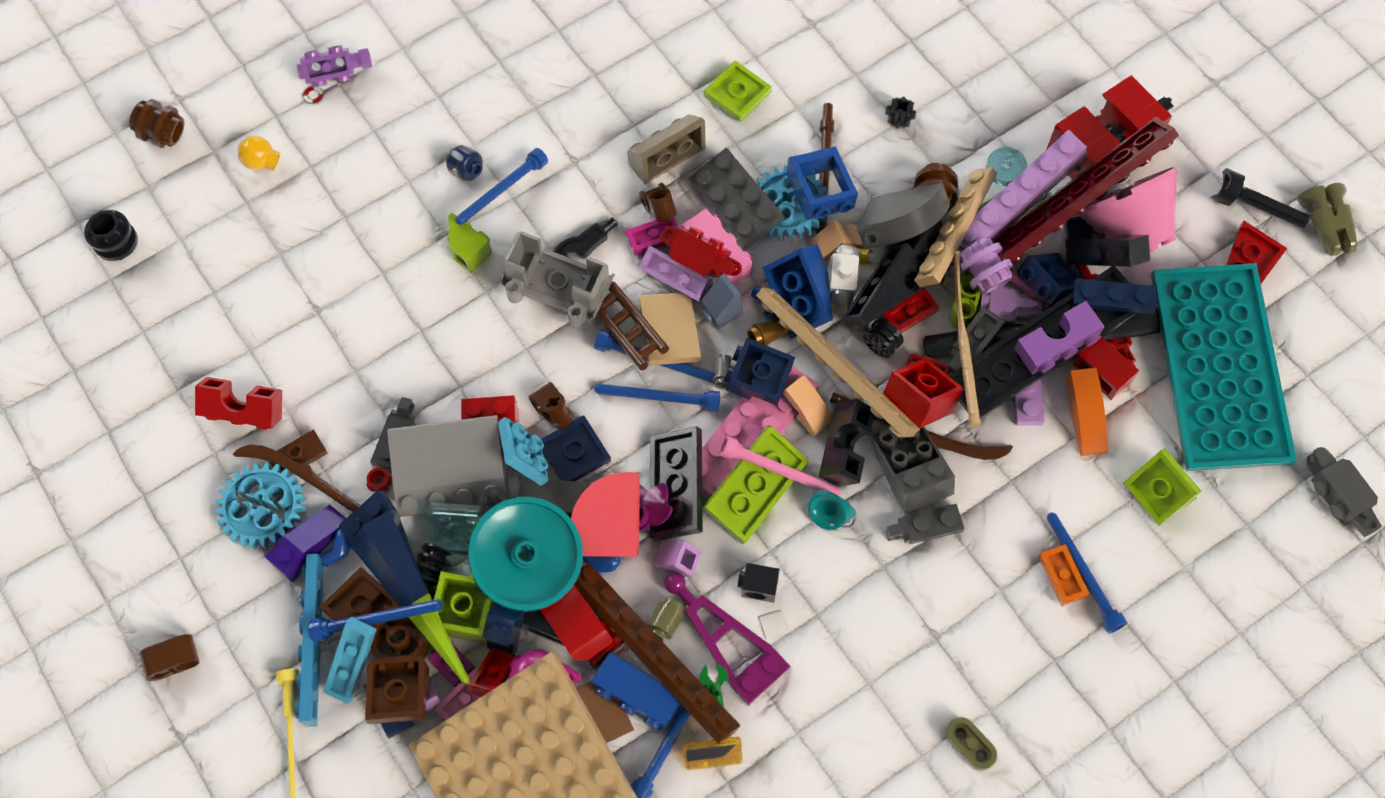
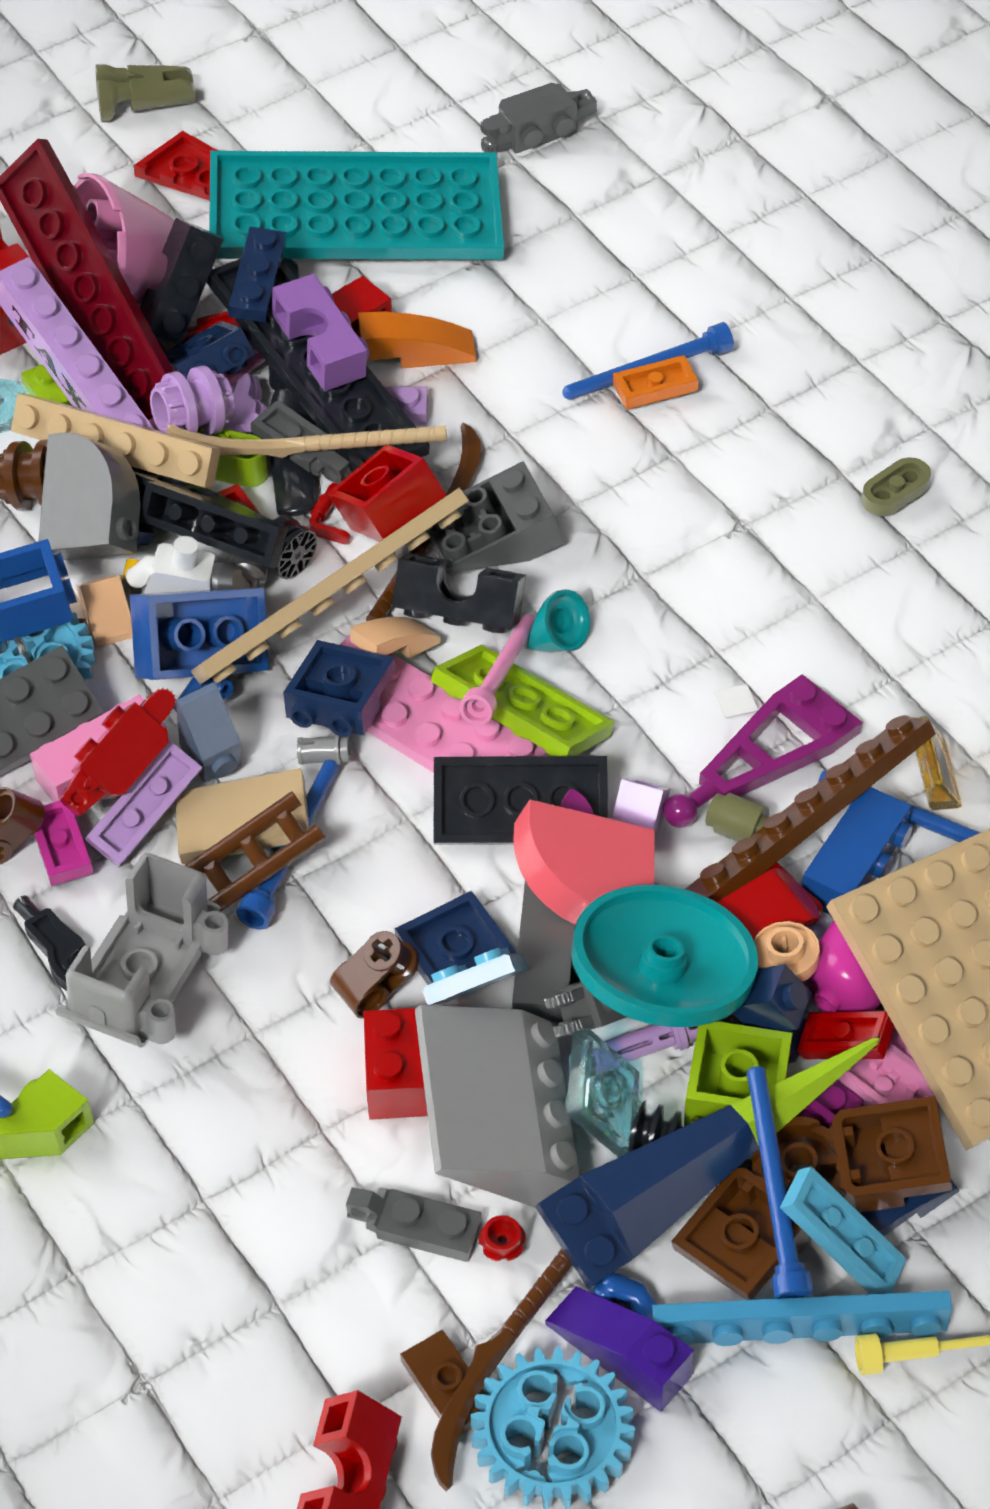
camera: 90 degrees left, 15 degrees down
(536, 632) = (789, 945): none -> light nougat plate
(708, 400) = (374, 766): blue piece -> none
(715, 687) = (826, 754): green bar -> none
(759, 582) = (678, 704): black brick -> none
(766, 332) = (261, 695): pearl gold cone -> none
(927, 525) = (581, 520): dark grey hinge -> none
(1162, 487) = (532, 269): lime bracket -> none
(1233, 189) = (93, 160): black piece -> none

